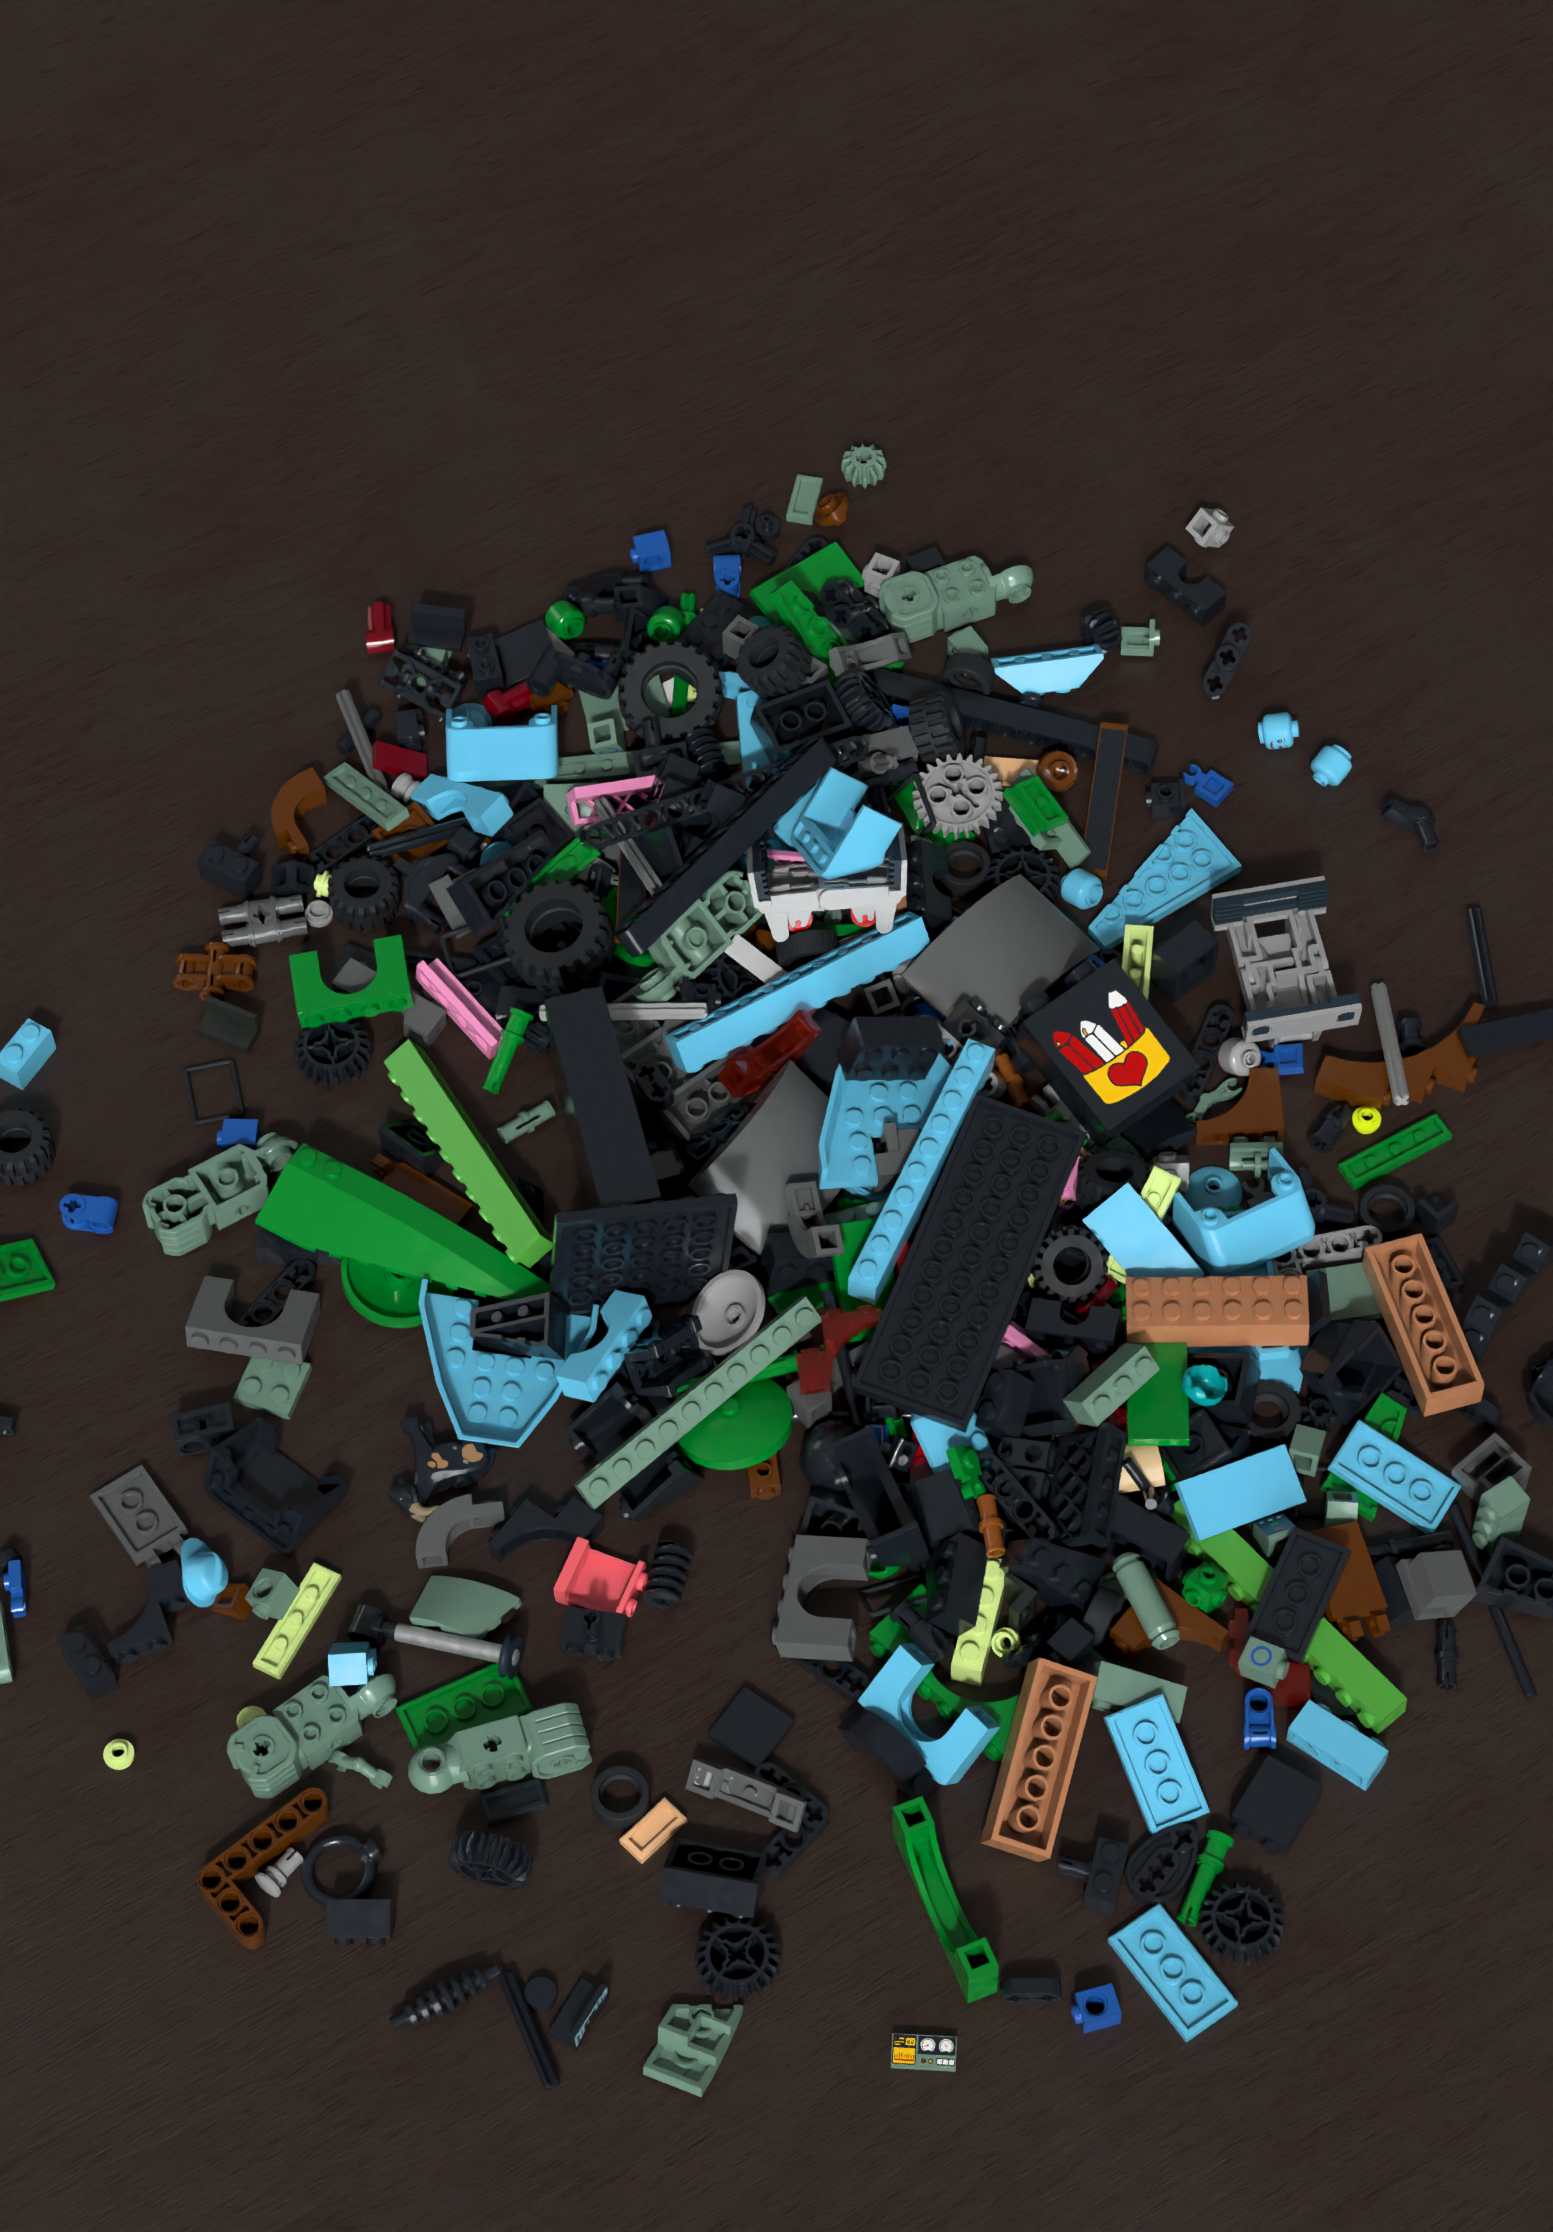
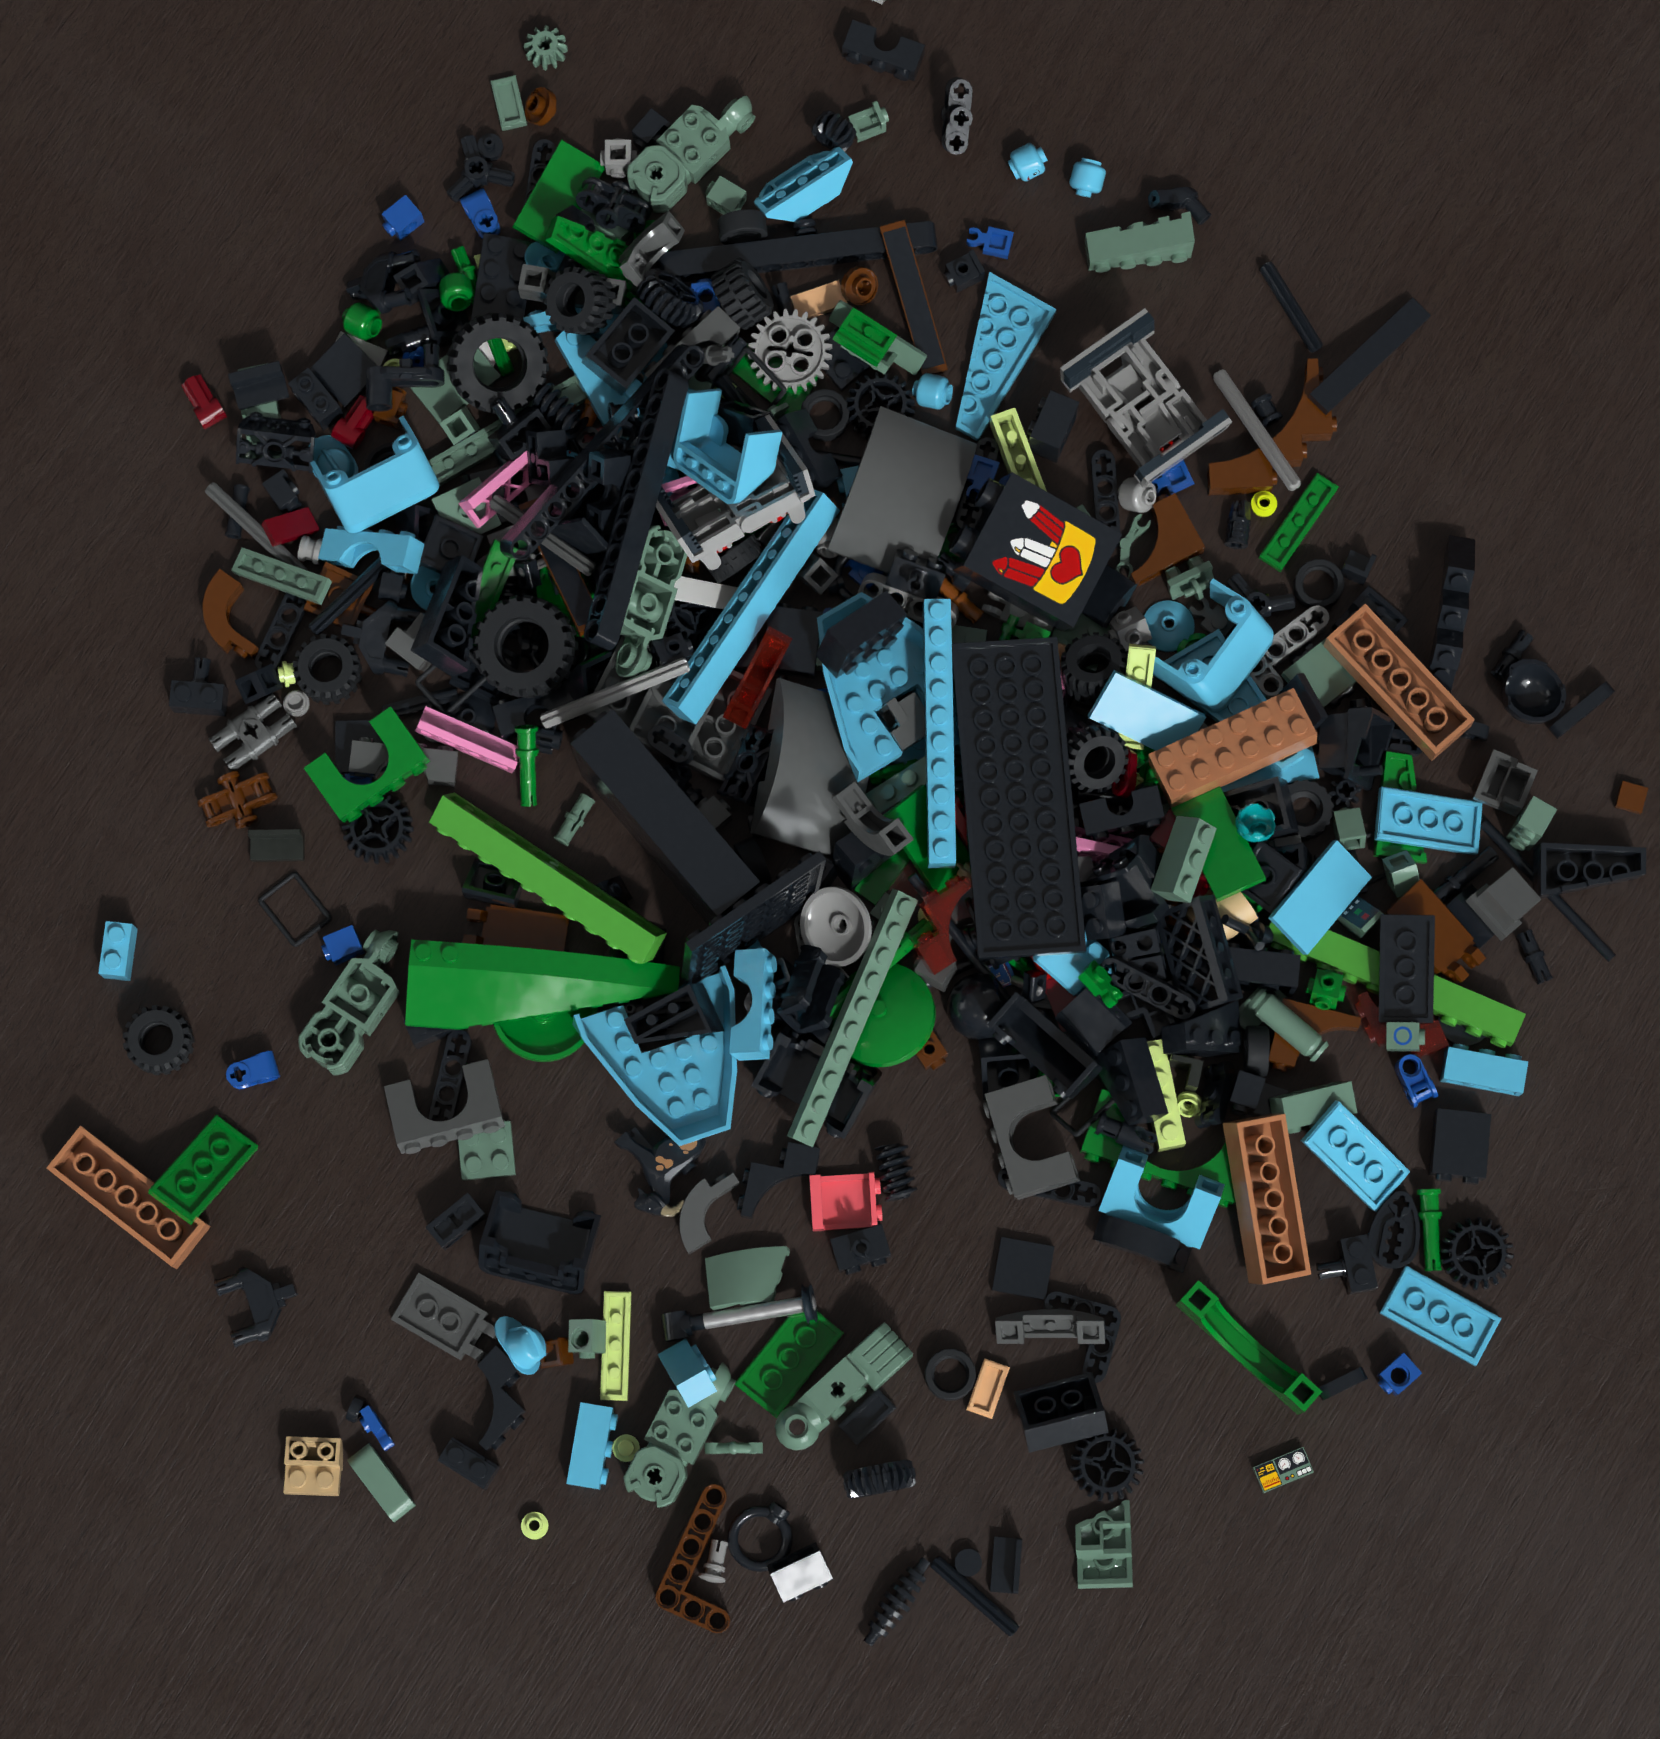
camera: 25 degrees left, 20 degrees up
(217, 1701) = (591, 1446): none -> medium azure brick
(990, 1526) = (1139, 1020): dark orange pin -> none
(1355, 840) = (1140, 244): none -> sand green wedge

